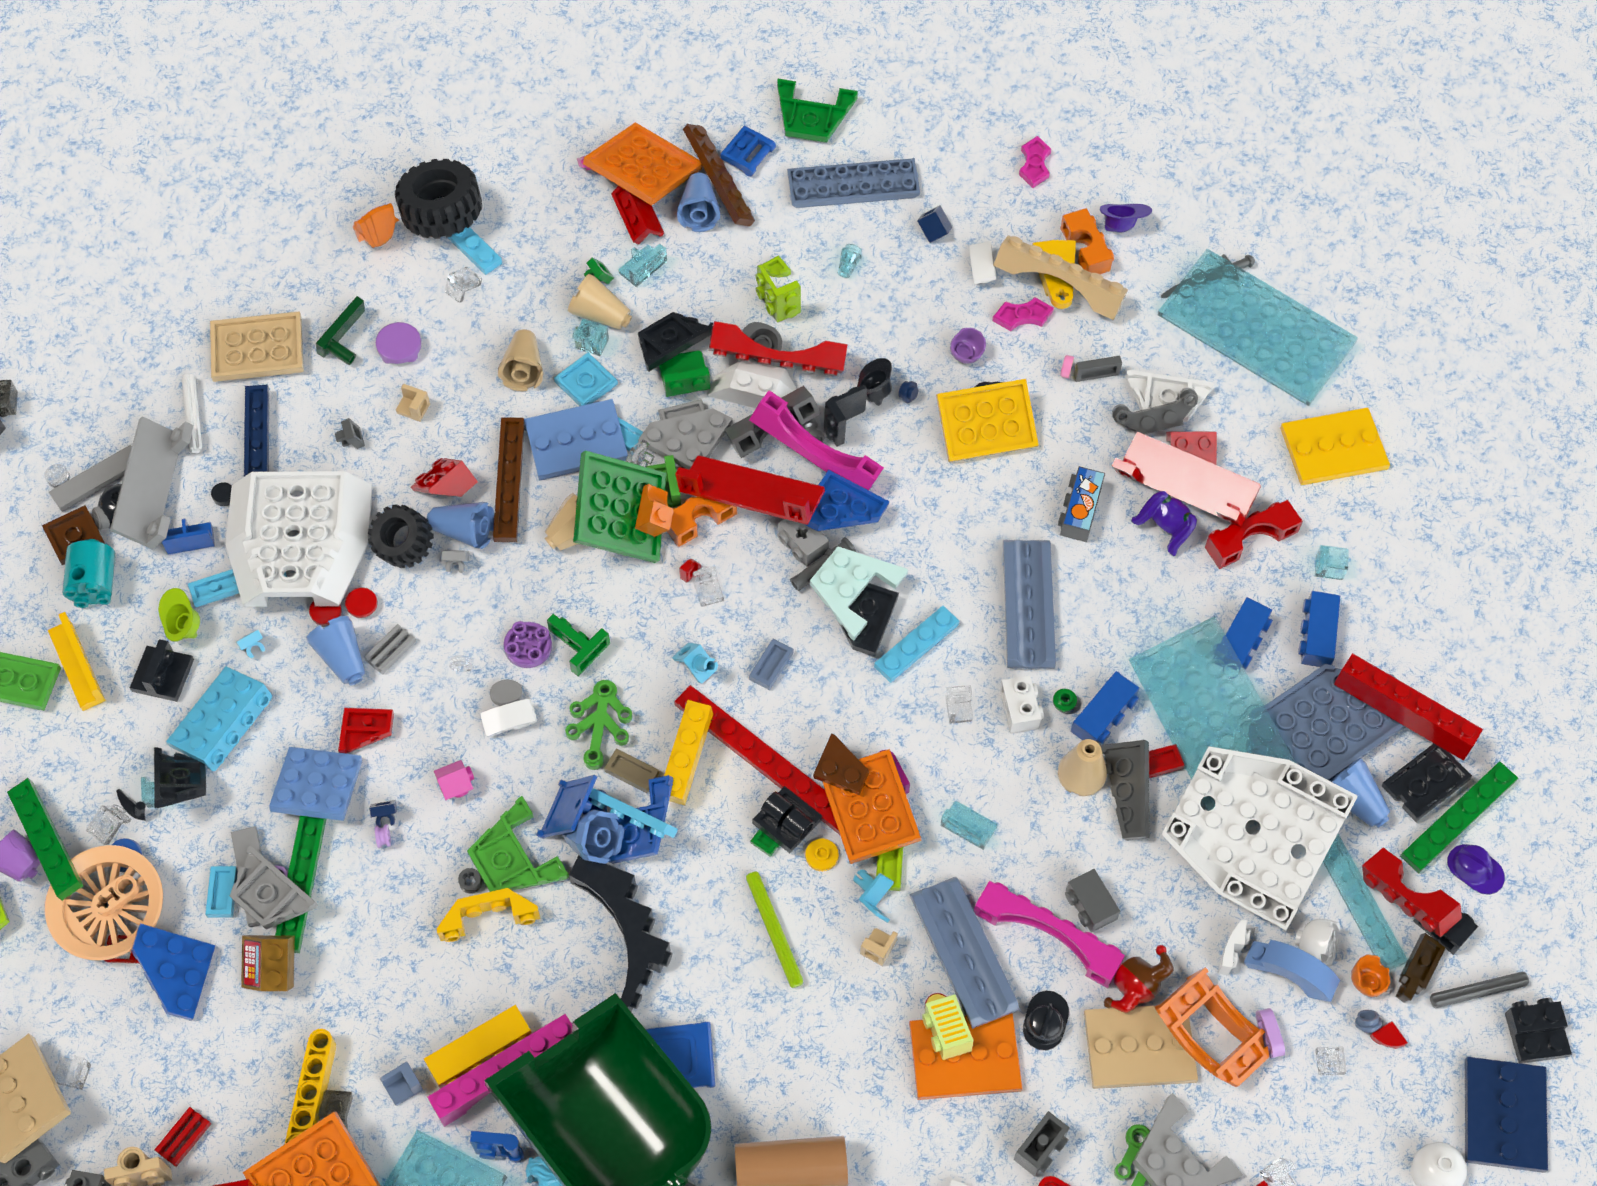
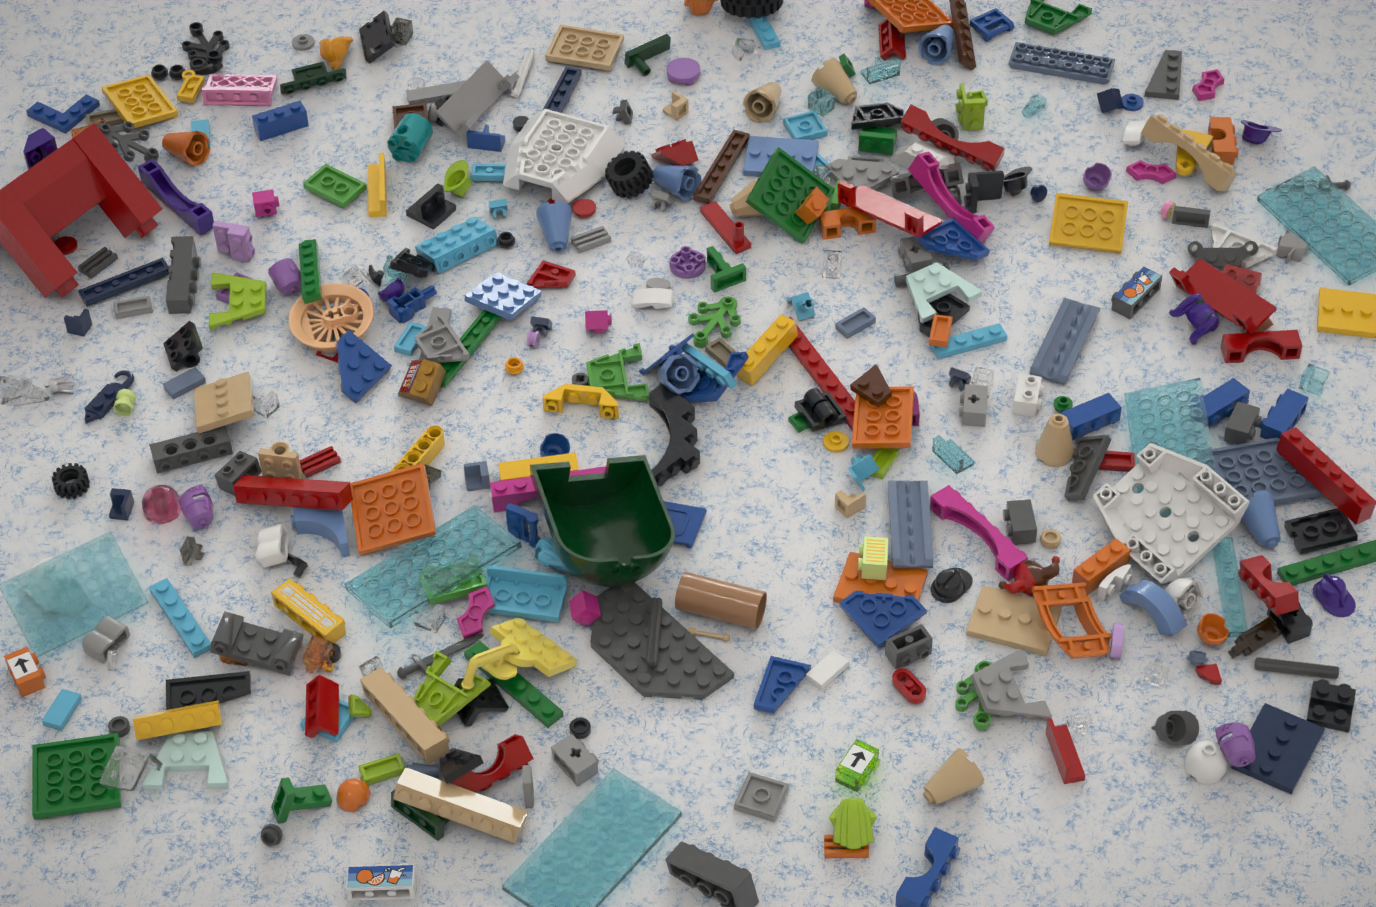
camera: 25 degrees right, 15 degrees down
(166, 828) = (394, 289): none -> dark purple hair
(202, 827) = (412, 303): none -> blue piece
(278, 684) = (506, 240): none -> black plate
(375, 881) = (514, 366): none -> light orange plate
(484, 1002) = (554, 445): none -> blue hair
(551, 571) = (729, 231): none -> red piece
(688, 568) = (820, 250): red tile -> none
(774, 929) = (779, 472): lime axle -> none
(881, 646) = (940, 331): none -> orange tile
(930, 705) = (959, 376): none -> dark blue tile
(959, 215) = (1132, 102): none -> blue piece
(965, 729) = (975, 405): none -> light grey brick
(984, 167) = (1166, 78): none -> dark grey wing
(989, 1105) = (882, 614): none -> blue plate
(1131, 907) = (1050, 539): none -> tan tile
(1209, 931) = (1101, 564): none -> orange brick
(1226, 373) = (1291, 247): none -> light grey piece
(1281, 659) = (1242, 424): none -> dark grey brick
(1388, 1137) = (1177, 727): none -> dark grey piece
(1472, 1142) = (1239, 747): none -> medium lavender helmet

